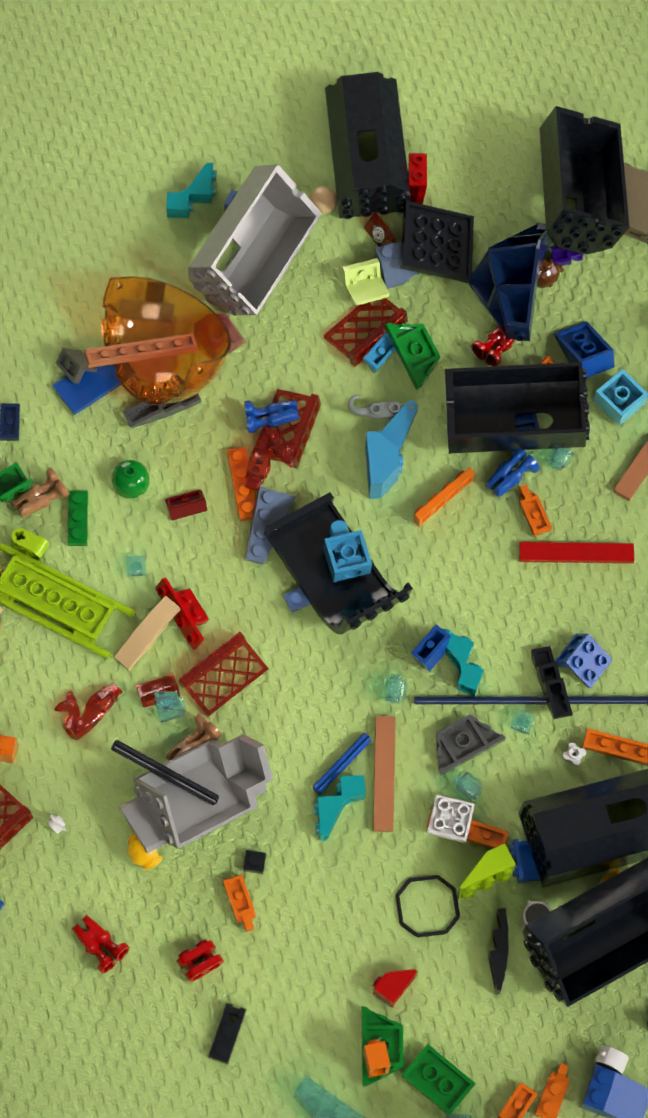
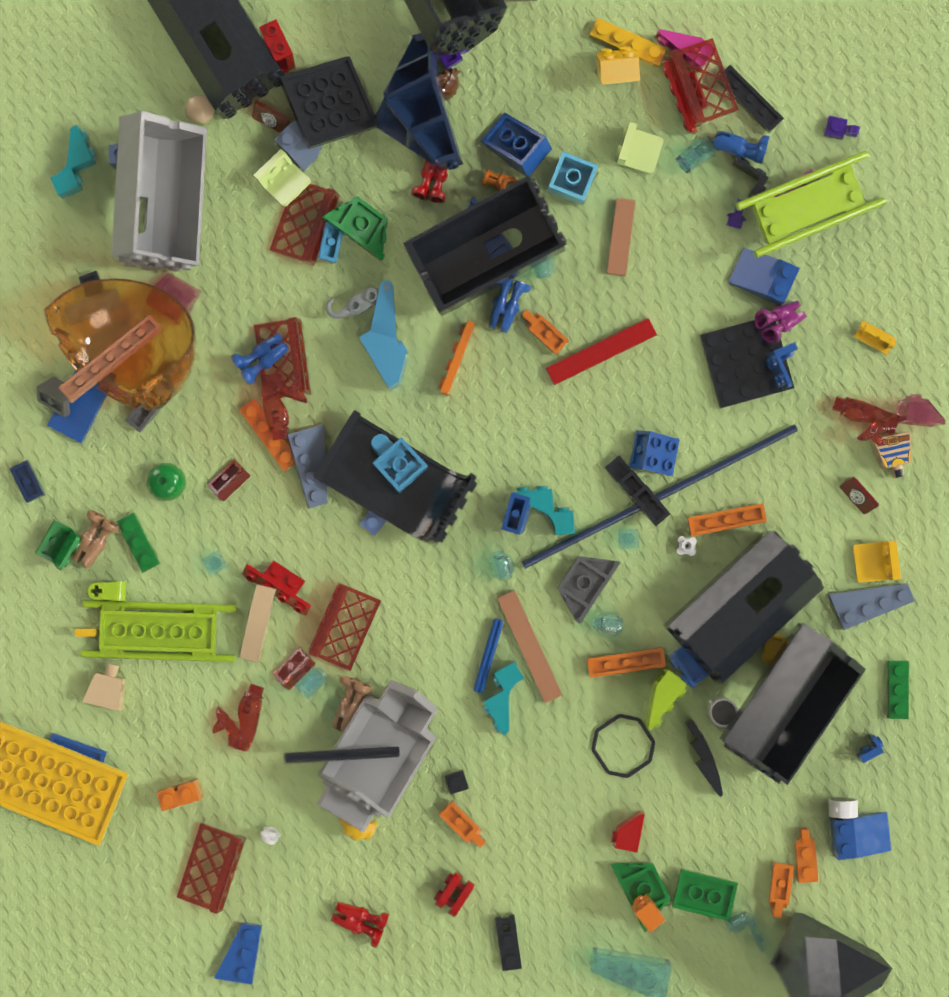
camera: 20 degrees left, 20 degrees up
(451, 818) = (608, 662): white tile -> none

